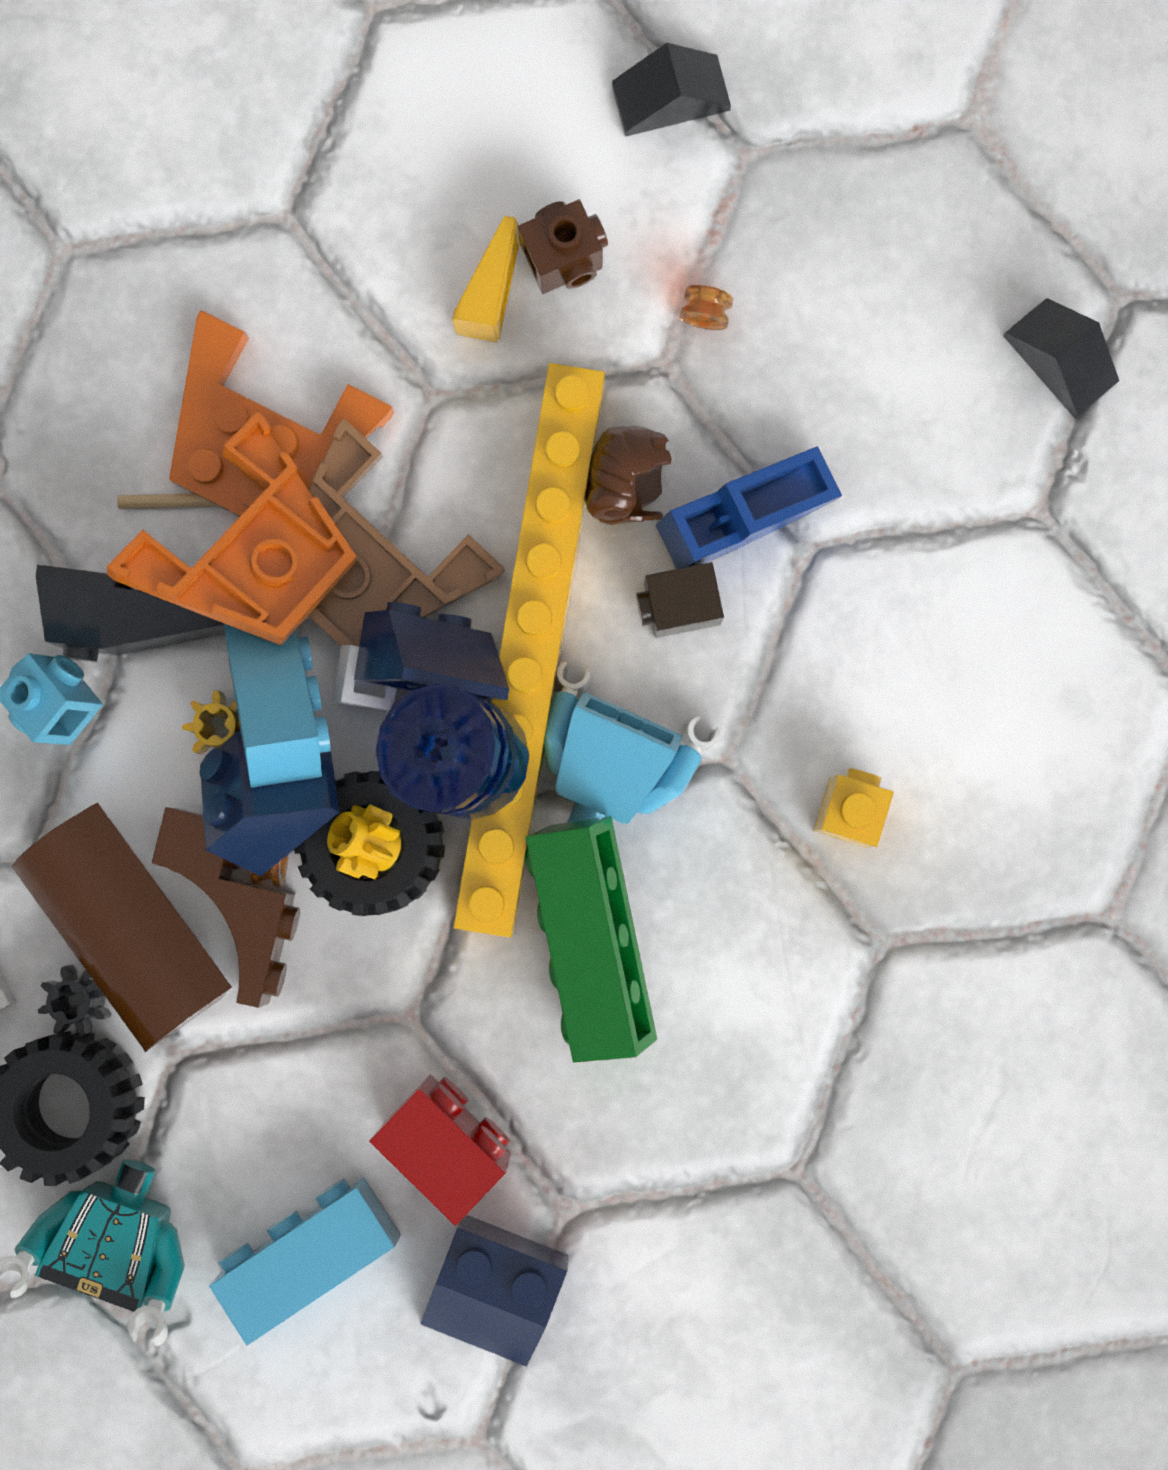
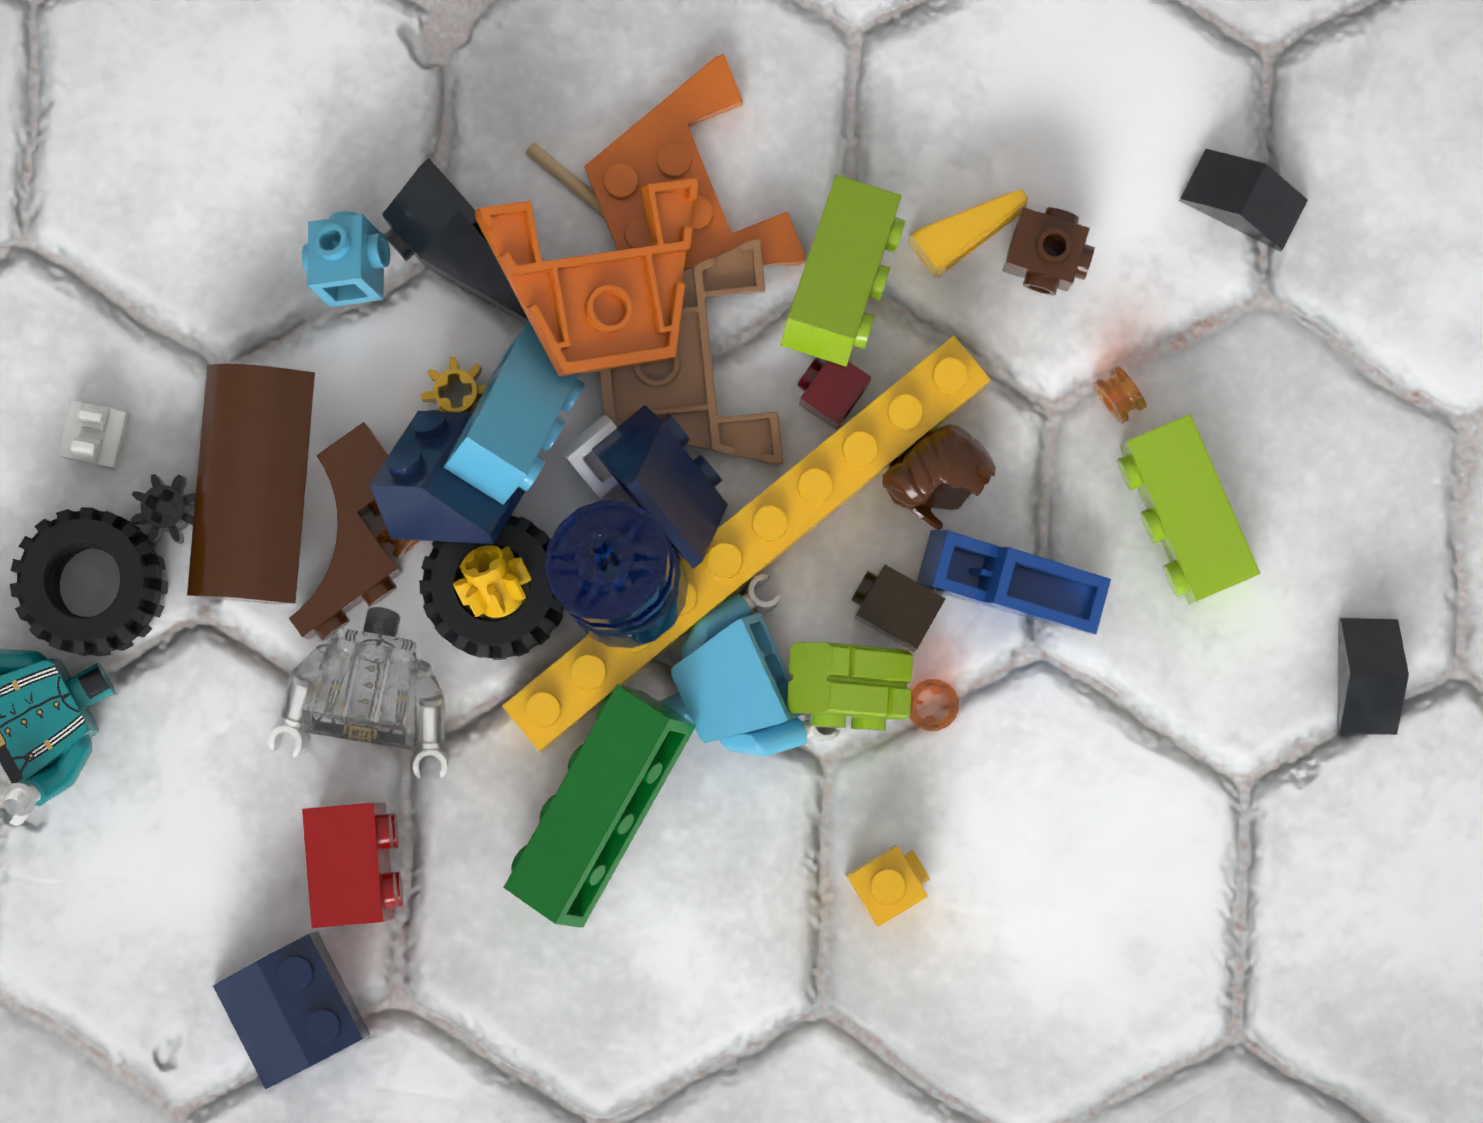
camera: 35 degrees right, 0 degrees up
(303, 1258) = (170, 856): medium azure brick -> none
(343, 1005) = (366, 691): none -> clear torso
(427, 387) = (844, 271): none -> lime brick
(493, 483) = (832, 390): none -> dark red plate
(695, 685) = (849, 682): none -> lime brick
(758, 637) = (934, 687): none -> clear orange bush
(830, 347) = (1187, 510): none -> lime brick

